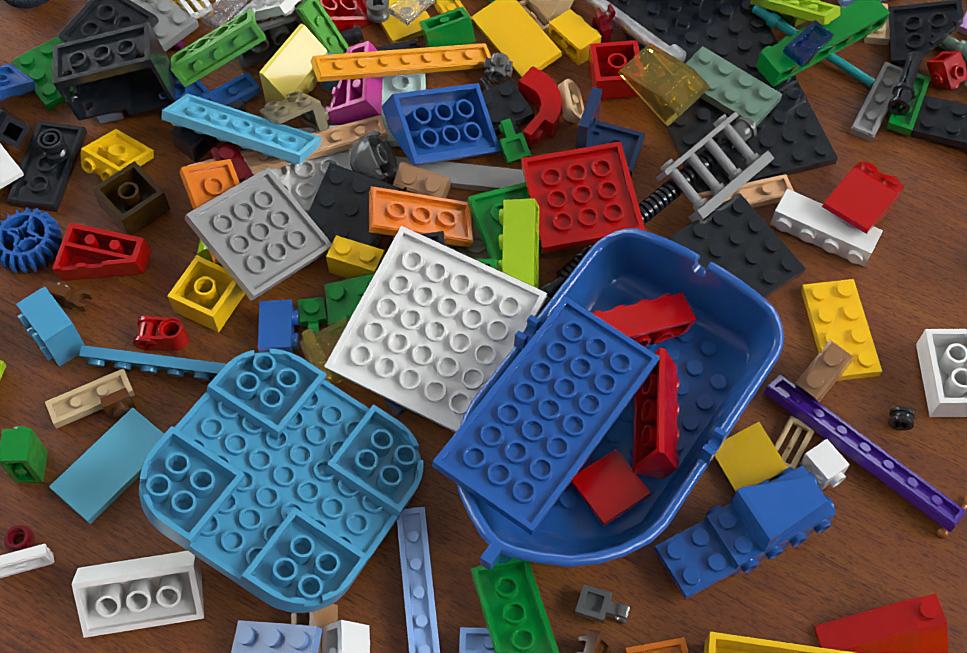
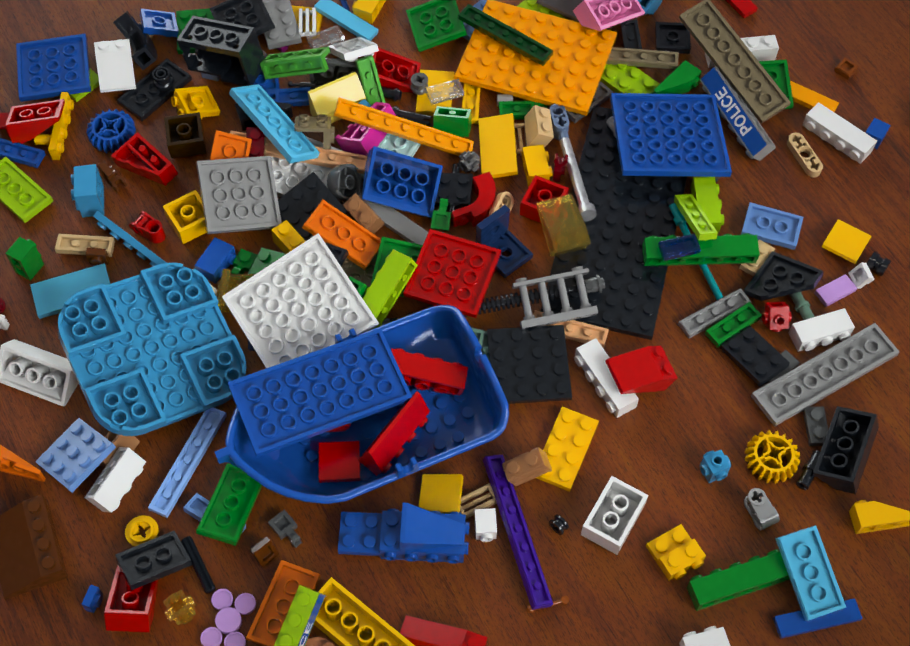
camera: 30 degrees right, 0 degrees up
(251, 68) = (312, 85): none -> black piece
(733, 88) = (612, 252): sand green plate -> none
(904, 90) = (731, 314): black pin -> none

